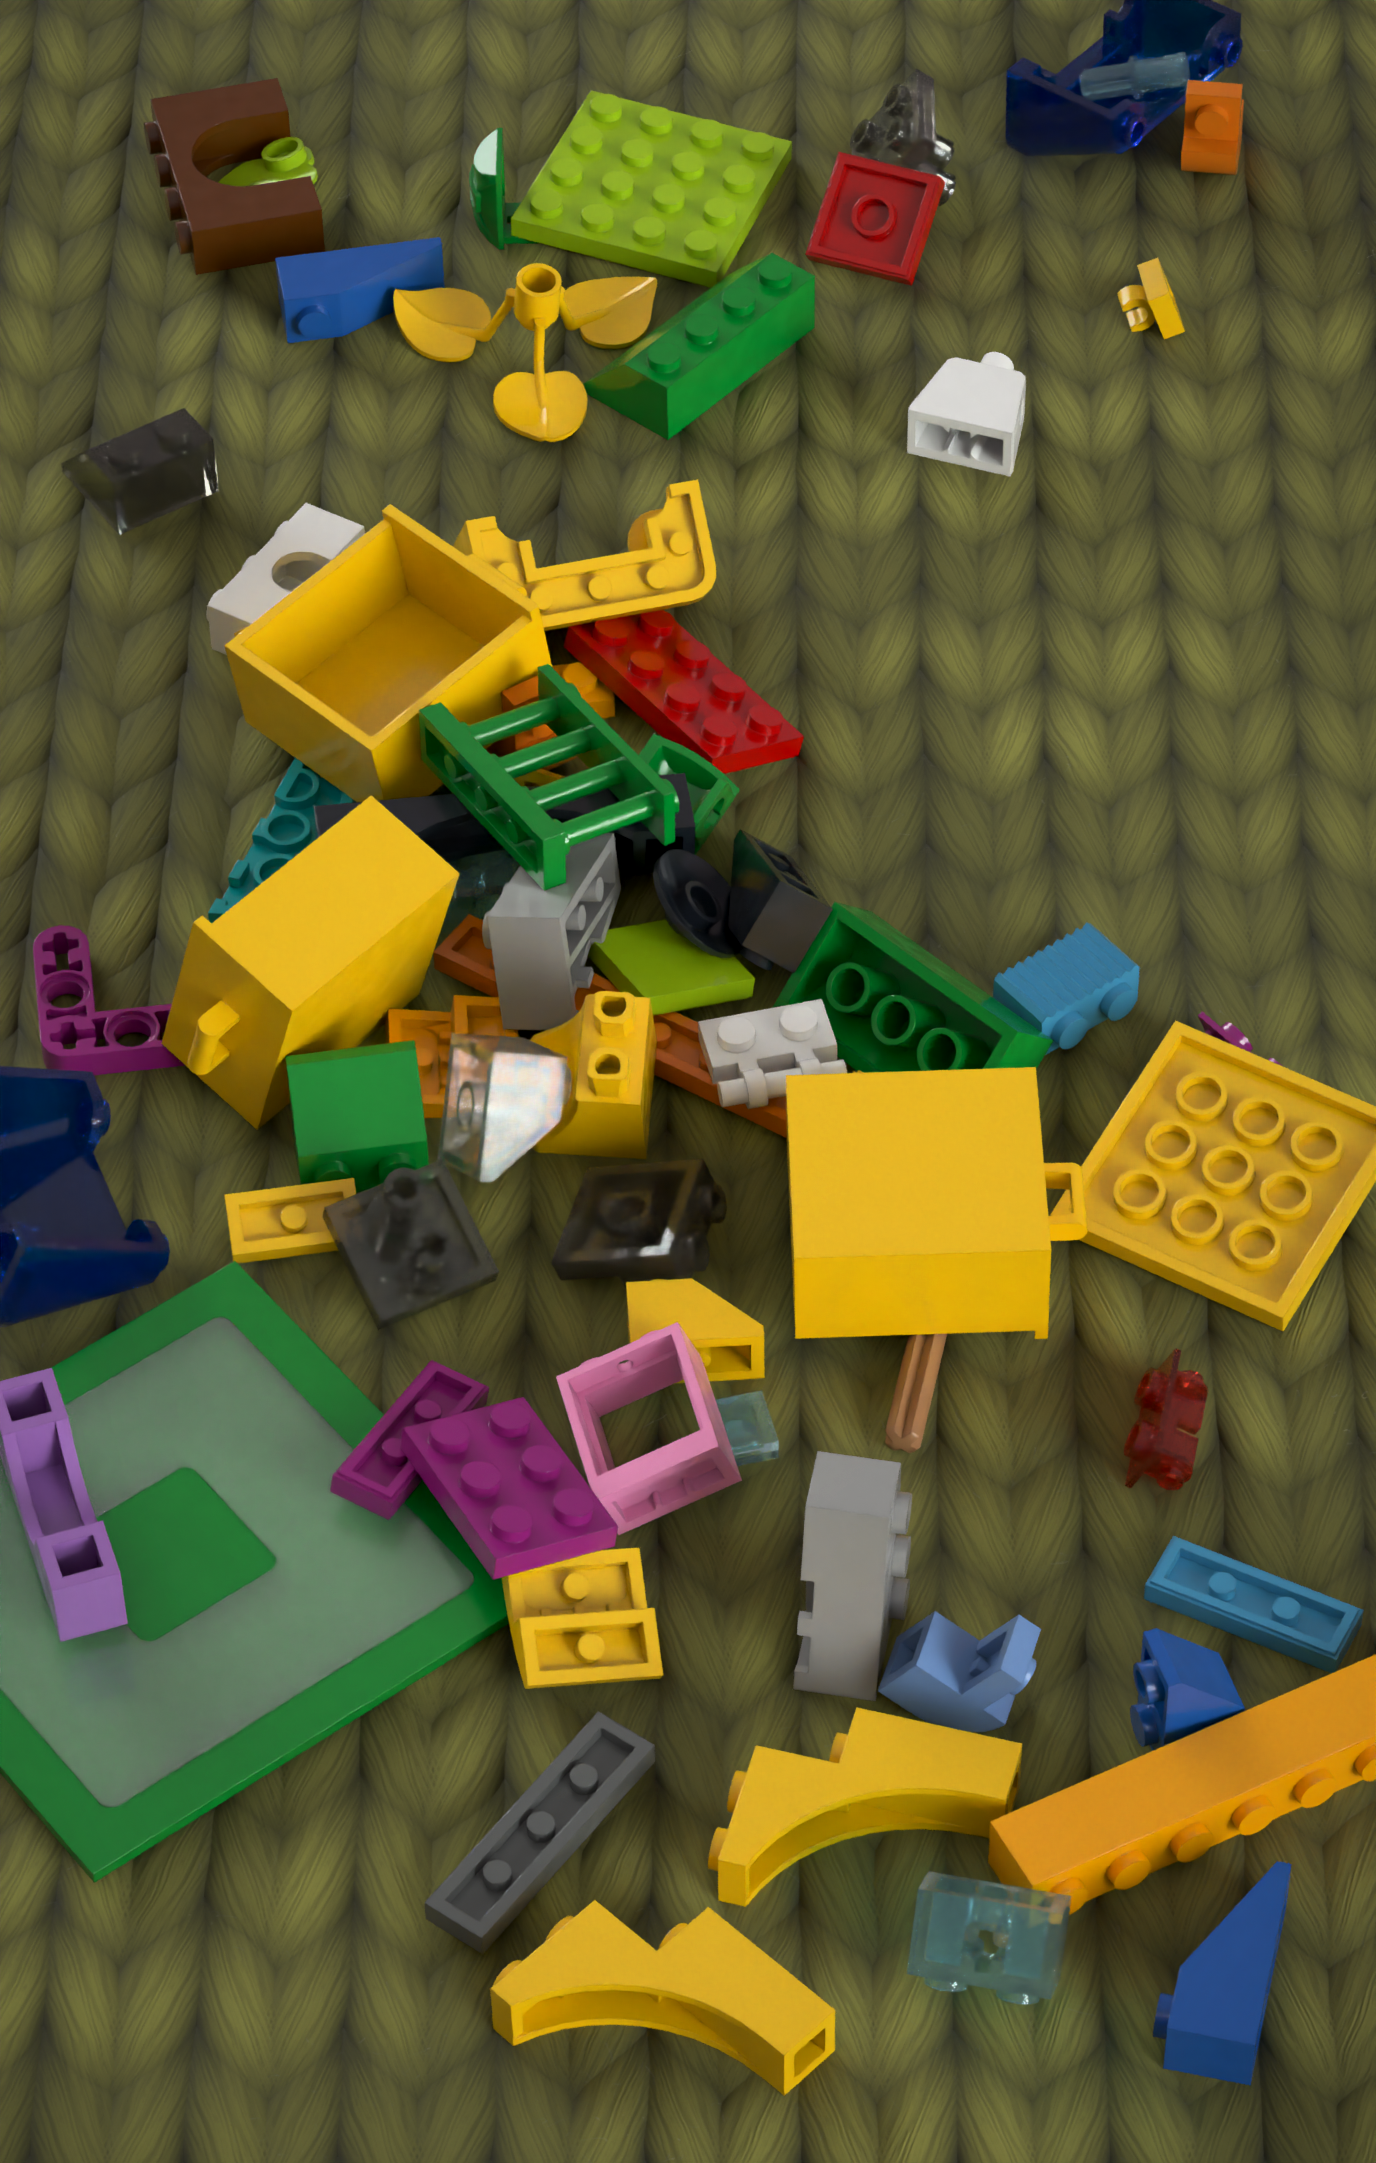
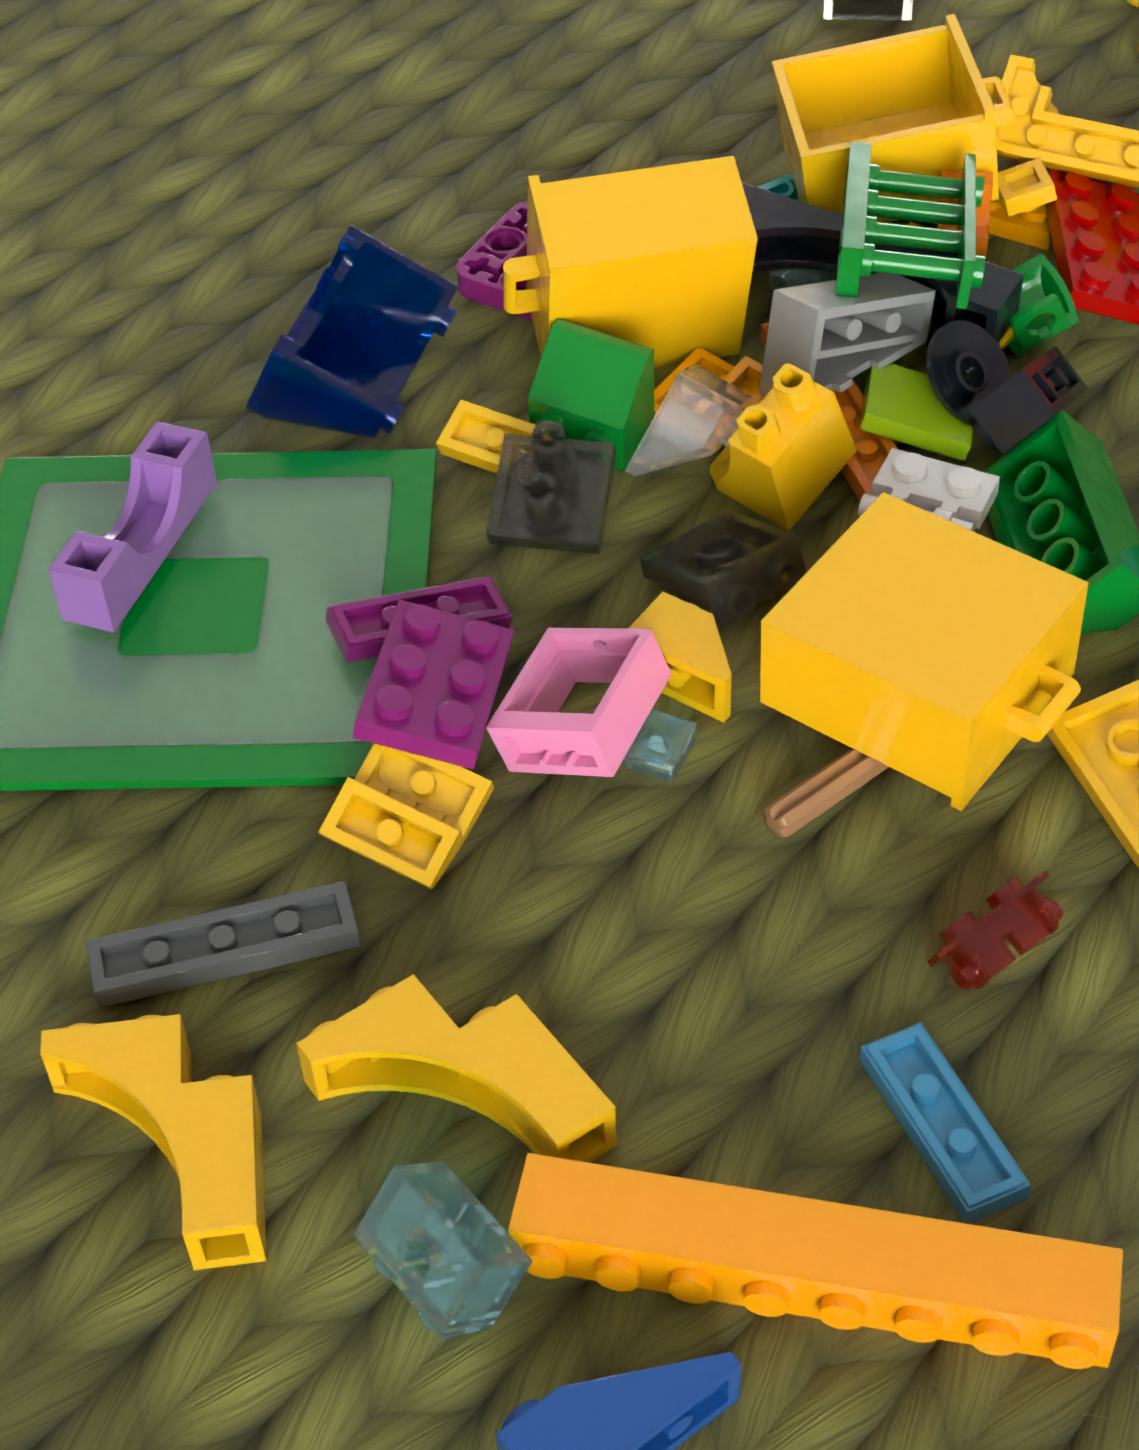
camera: 40 degrees right, 0 degrees up
(575, 655) = (1025, 187): none -> yellow plate
(851, 1573) = (605, 886): light grey wedge -> none
(956, 1678) = (633, 1022): medium blue brick -> none
(1179, 1690) = (789, 1144): blue slope -> none

